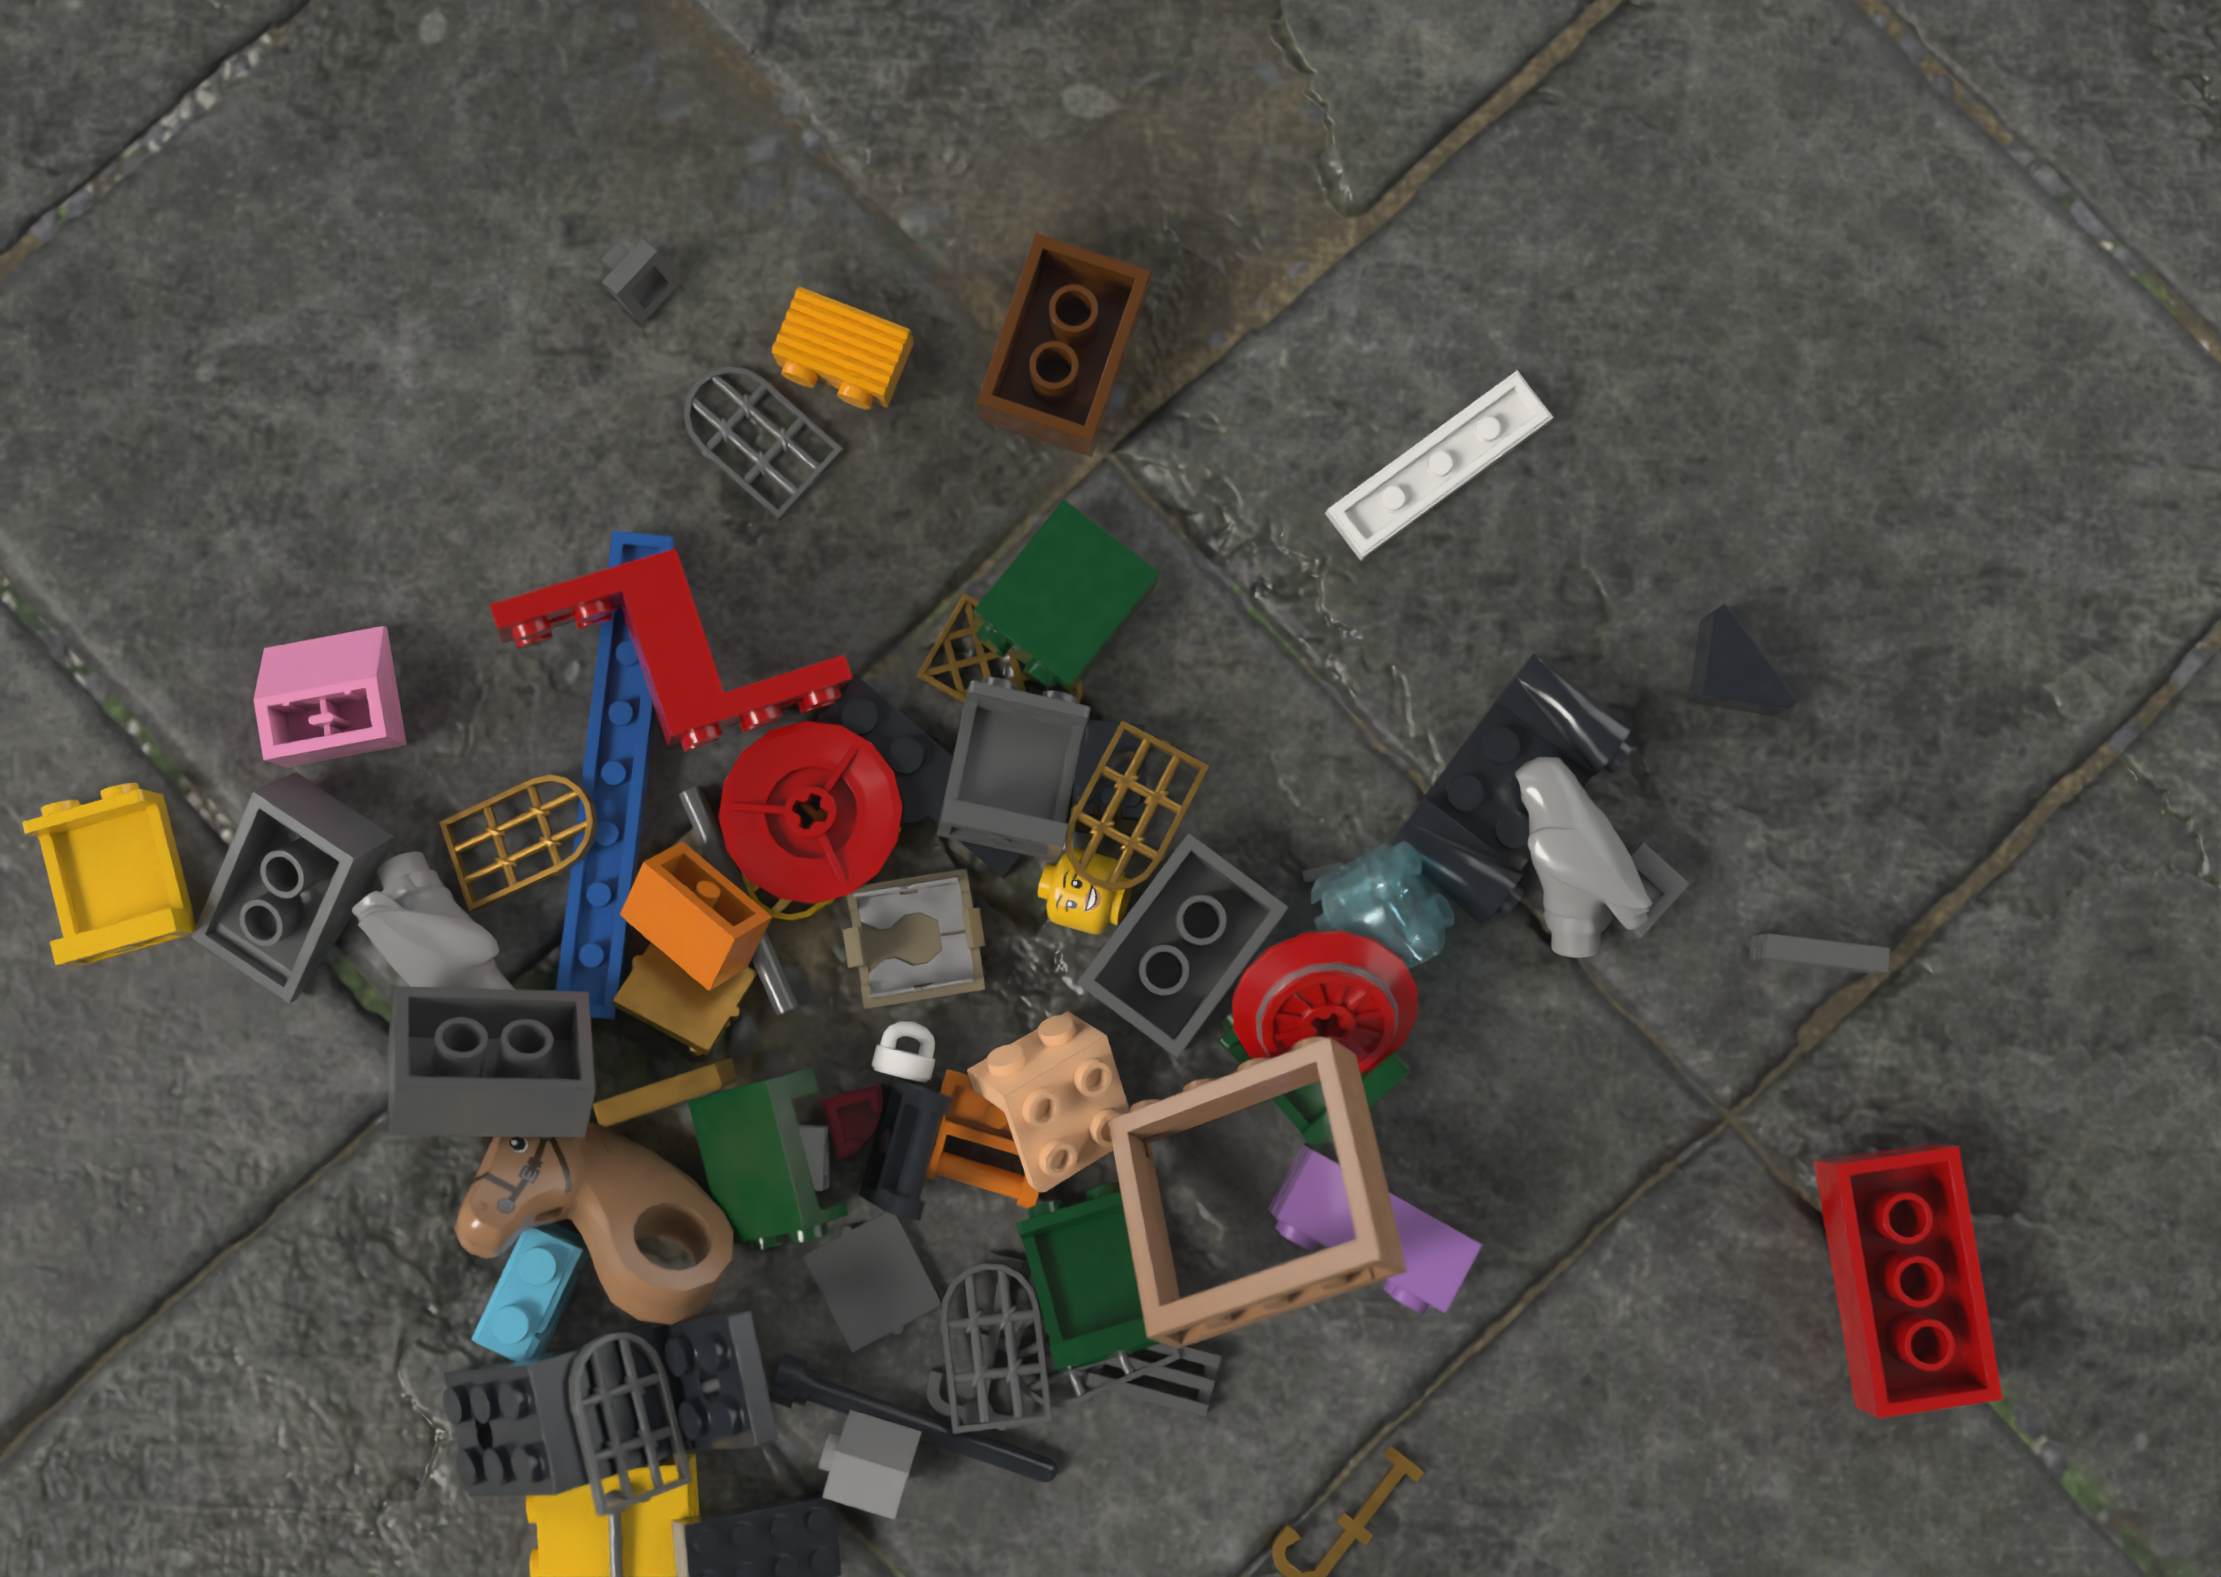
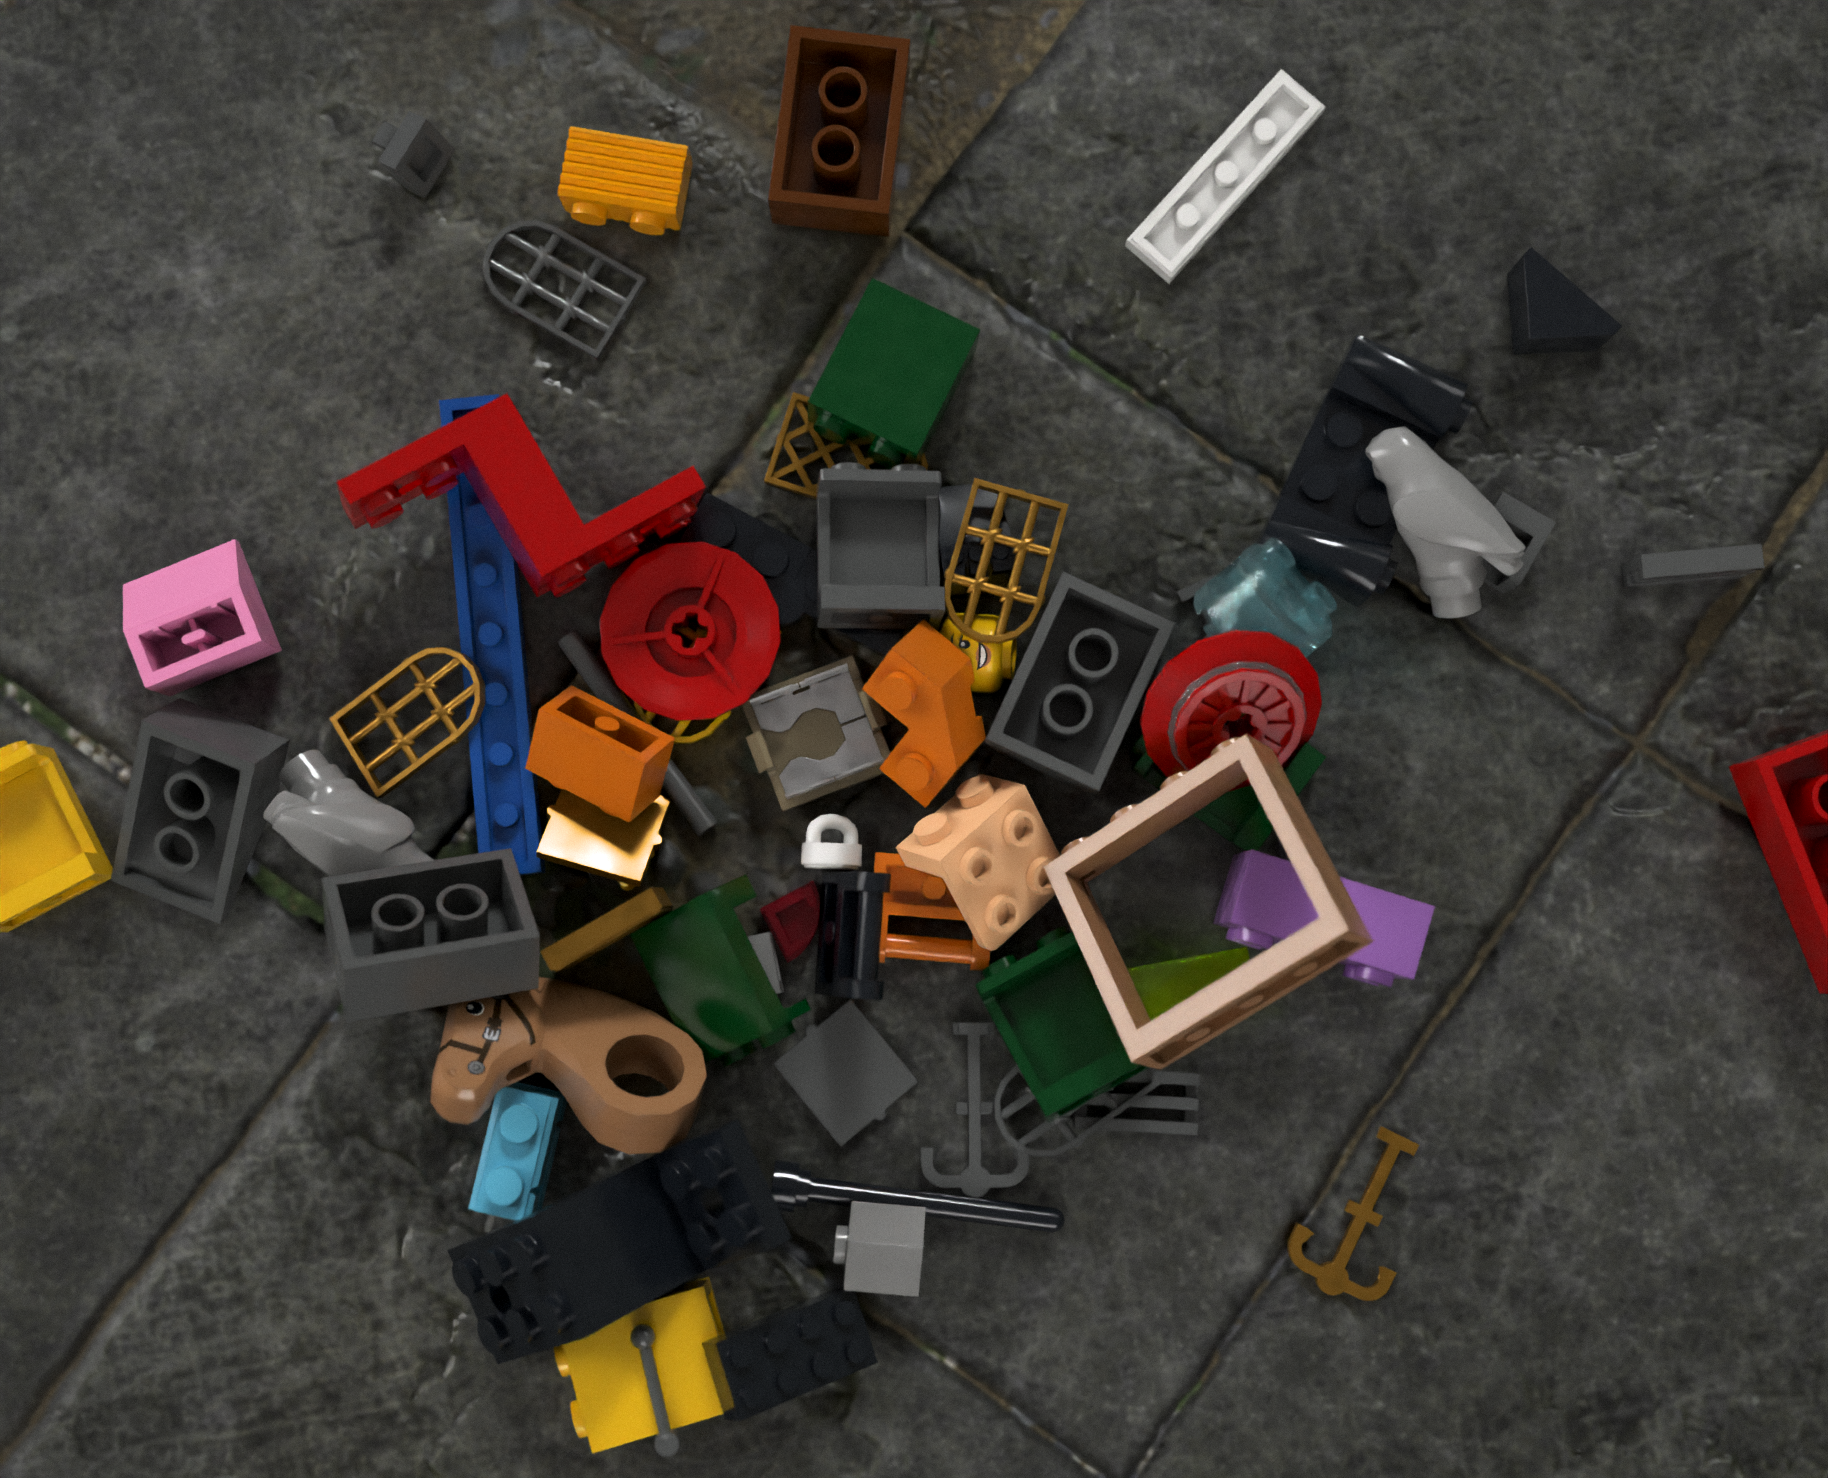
camera: 10 degrees left, 0 degrees up
(645, 1437) = (659, 1265): dark grey window -> none
(982, 1373) = (970, 1138): dark grey window -> none
(1031, 926) = (929, 691): none -> orange brick
(1218, 1260) = (1173, 981): none -> clear neon green tile

